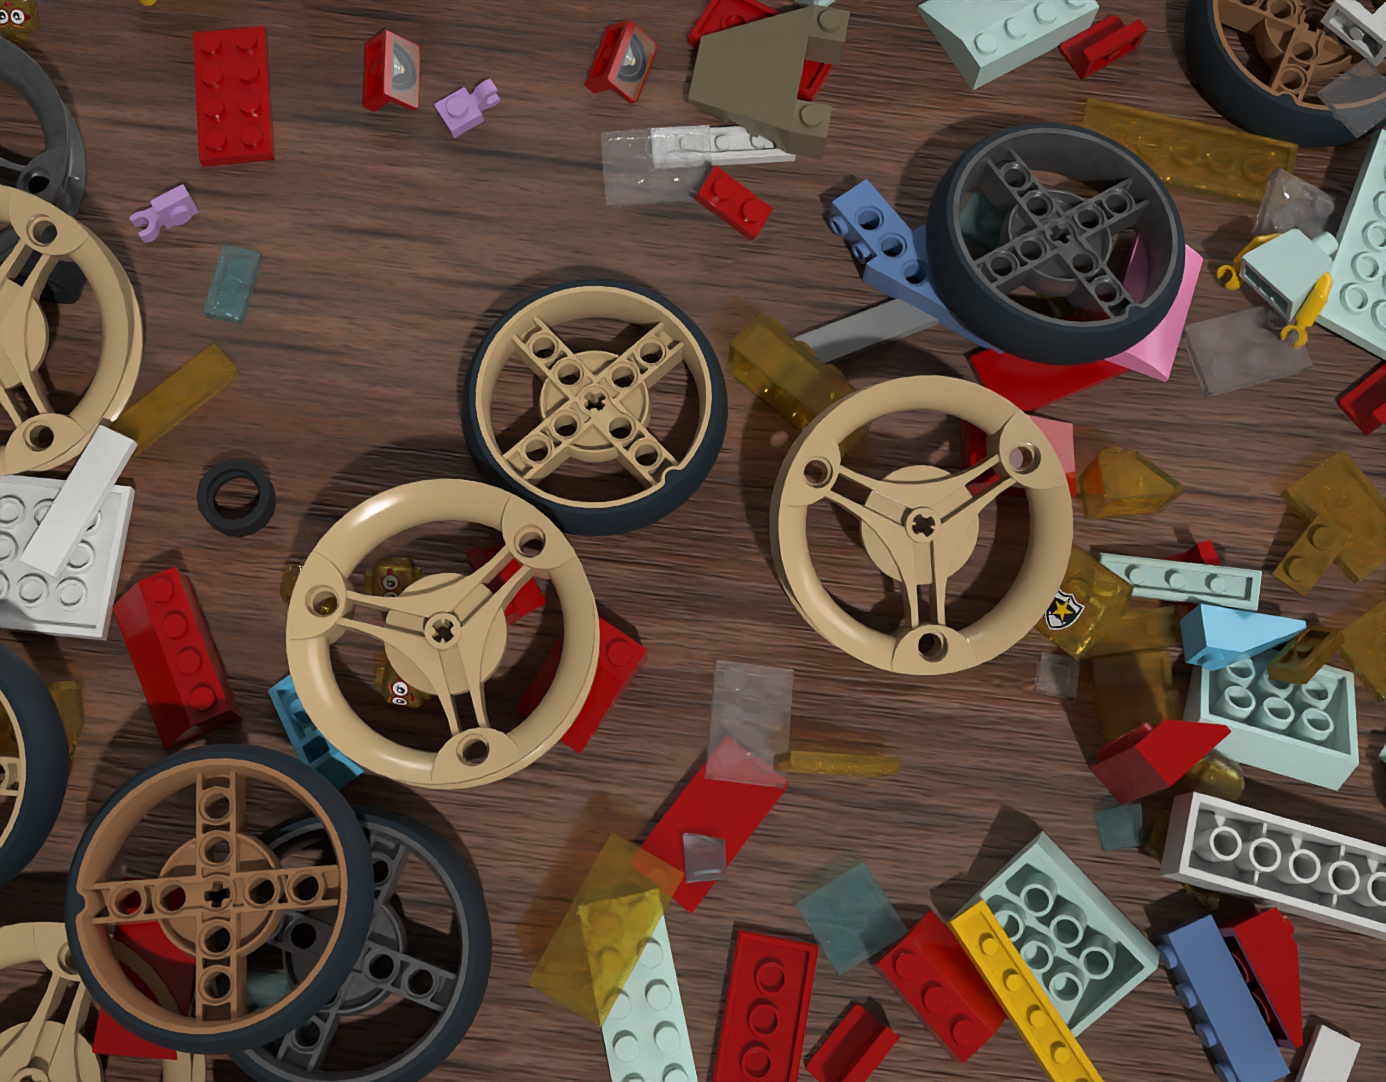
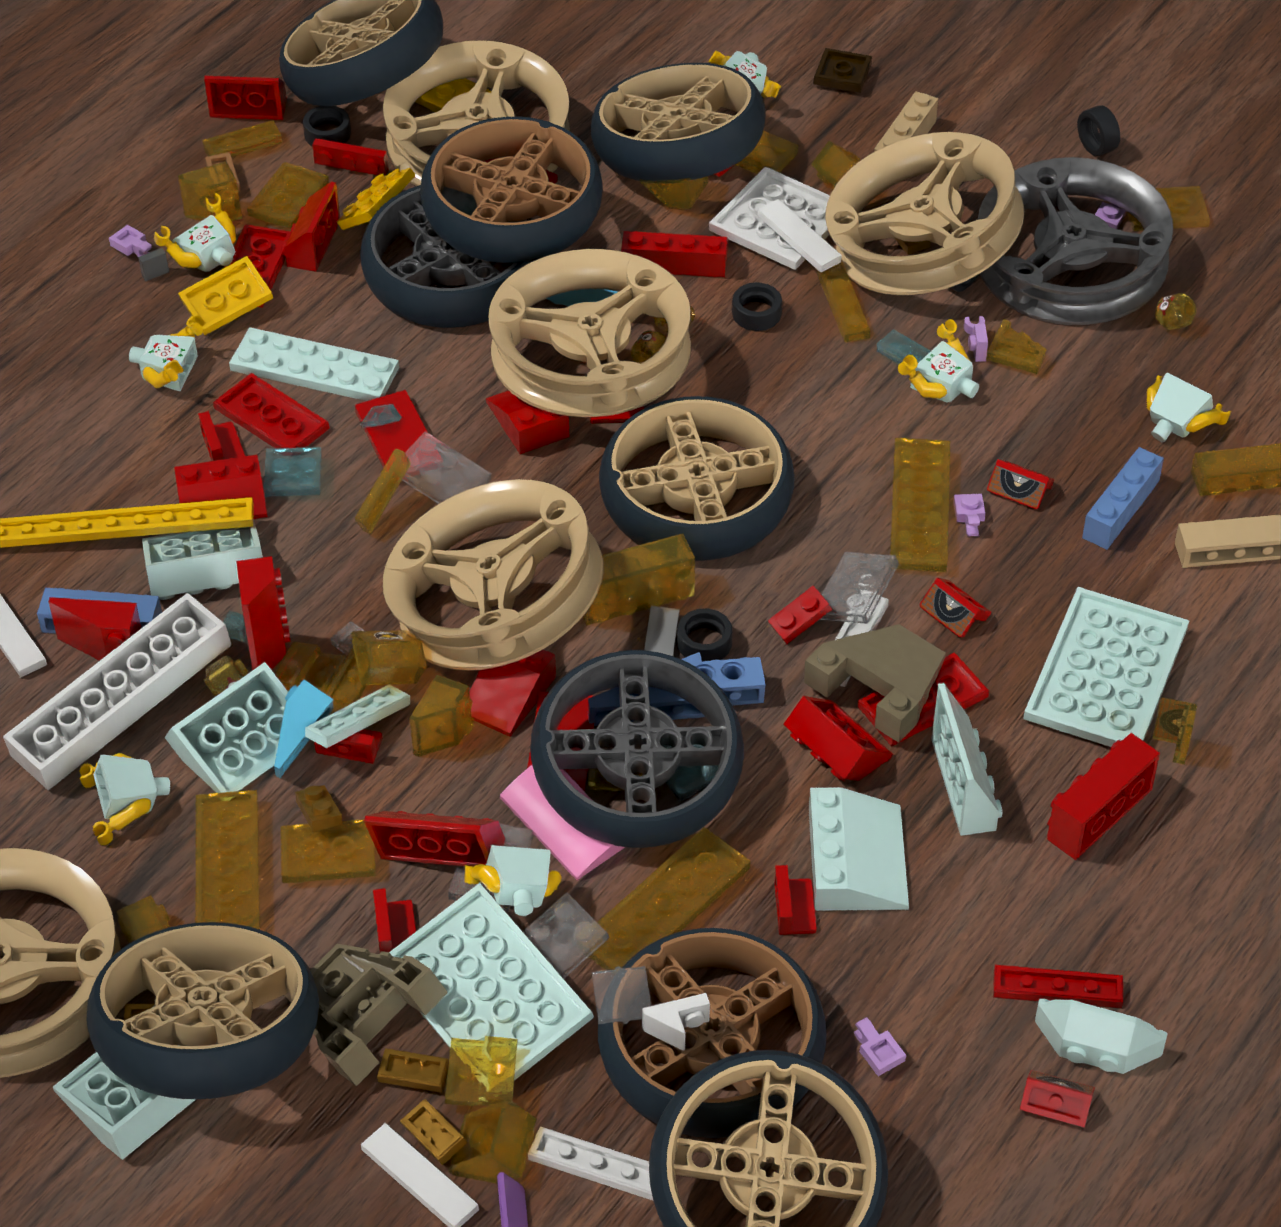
camera: 125 degrees right, 25 degrees down
(162, 164) = (1016, 349): none -> clear yellow wing
(233, 96) = (1053, 402): red plate -> none
(248, 220) = (944, 370): none -> torso
(485, 160) = (920, 504): none -> clear yellow plate
(606, 929) = (374, 351): clear yellow brick -> none
(827, 263) = (705, 619): none -> black tyre
(879, 89) = (836, 738): none -> red slope
(1284, 394) = (433, 838): none -> red slope
(1305, 654) = (258, 760): pearl gold plate -> none

